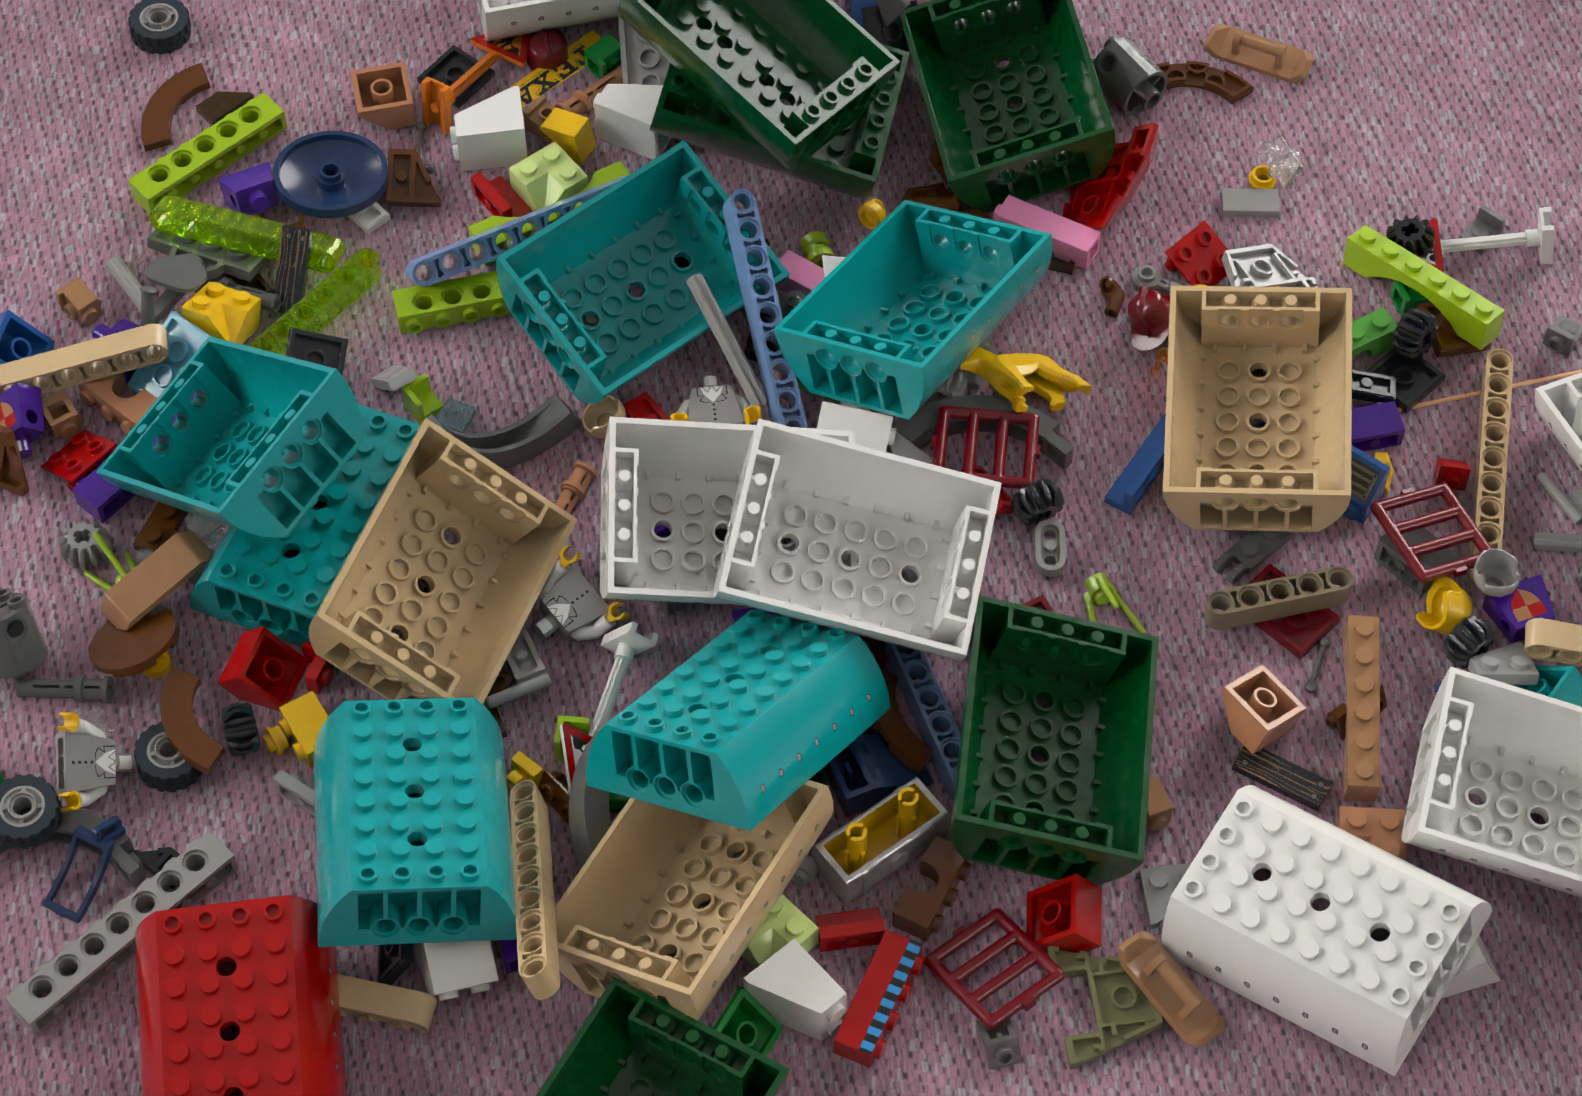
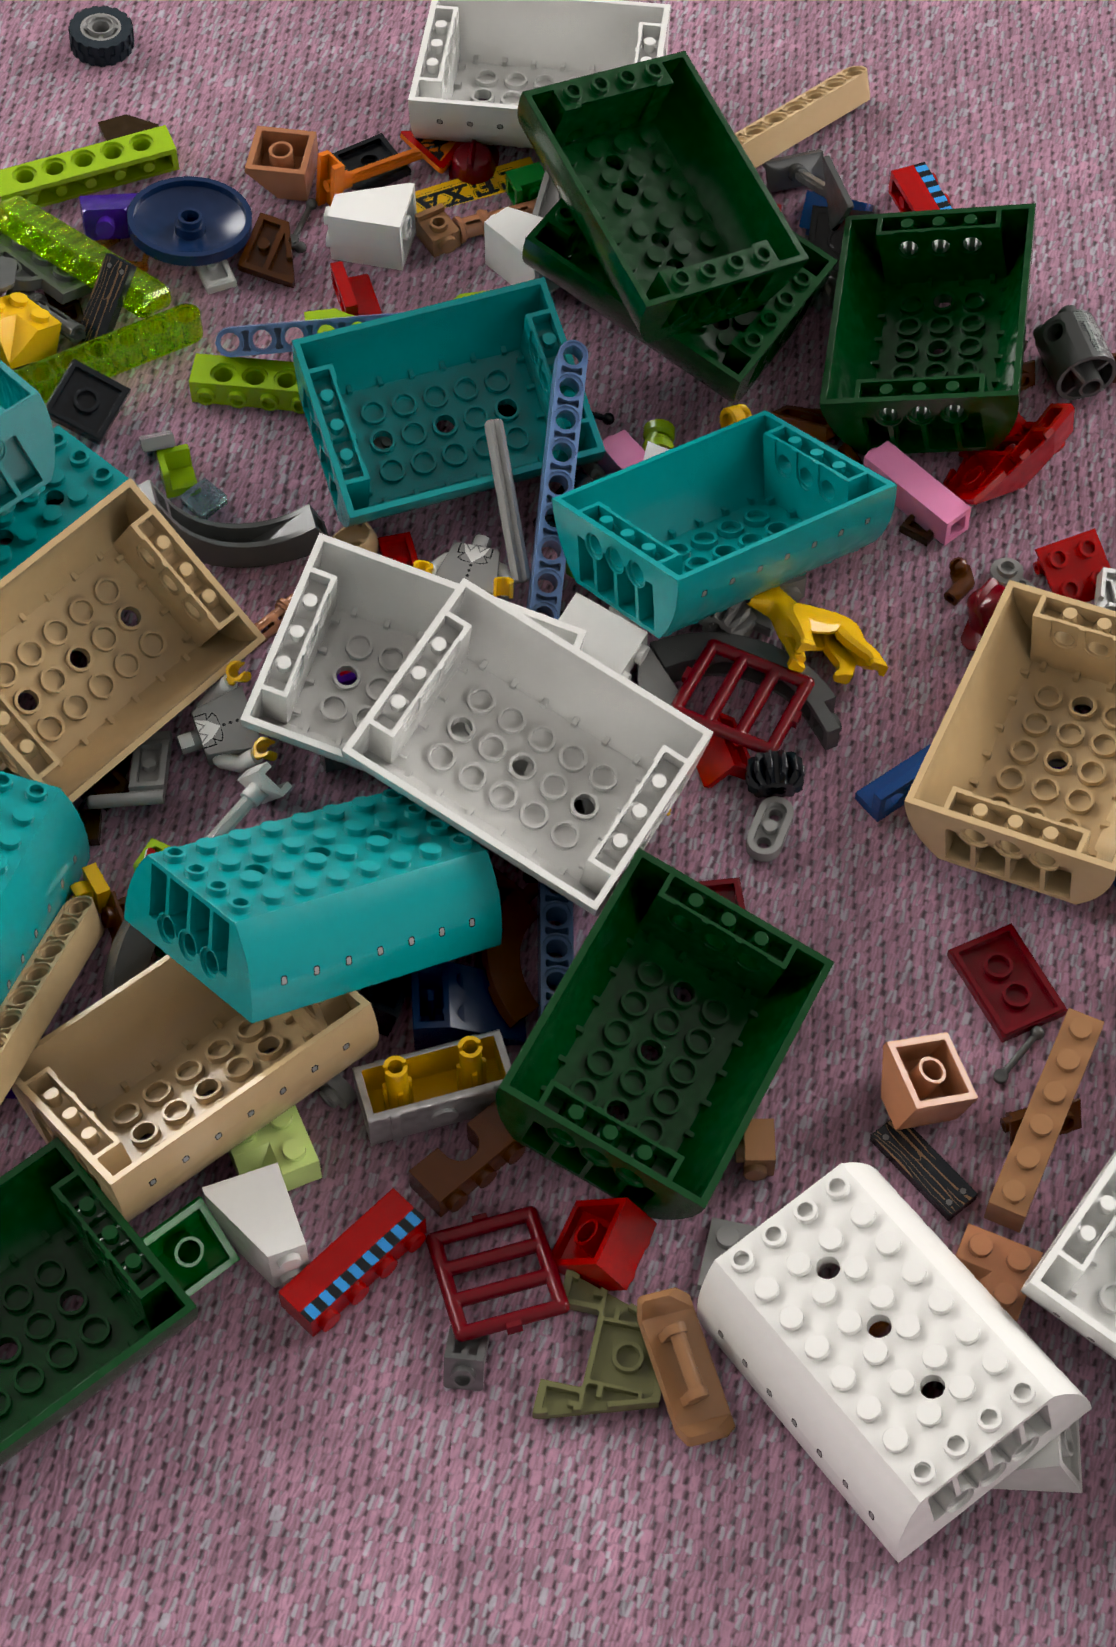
camera: 20 degrees right, 0 degrees up
(164, 102) = (60, 119): reddish brown tile -> none
(547, 177) = (408, 283): yellowish green slope -> none
(571, 133) = (454, 250): yellow slope -> none
(850, 929) = (359, 1173): red panel -> none
(1102, 592) = (806, 896): lime plant -> none
(1251, 552) = (994, 905): dark grey hinge -> none
(1267, 607) = (1016, 955): dark tan beam -> none

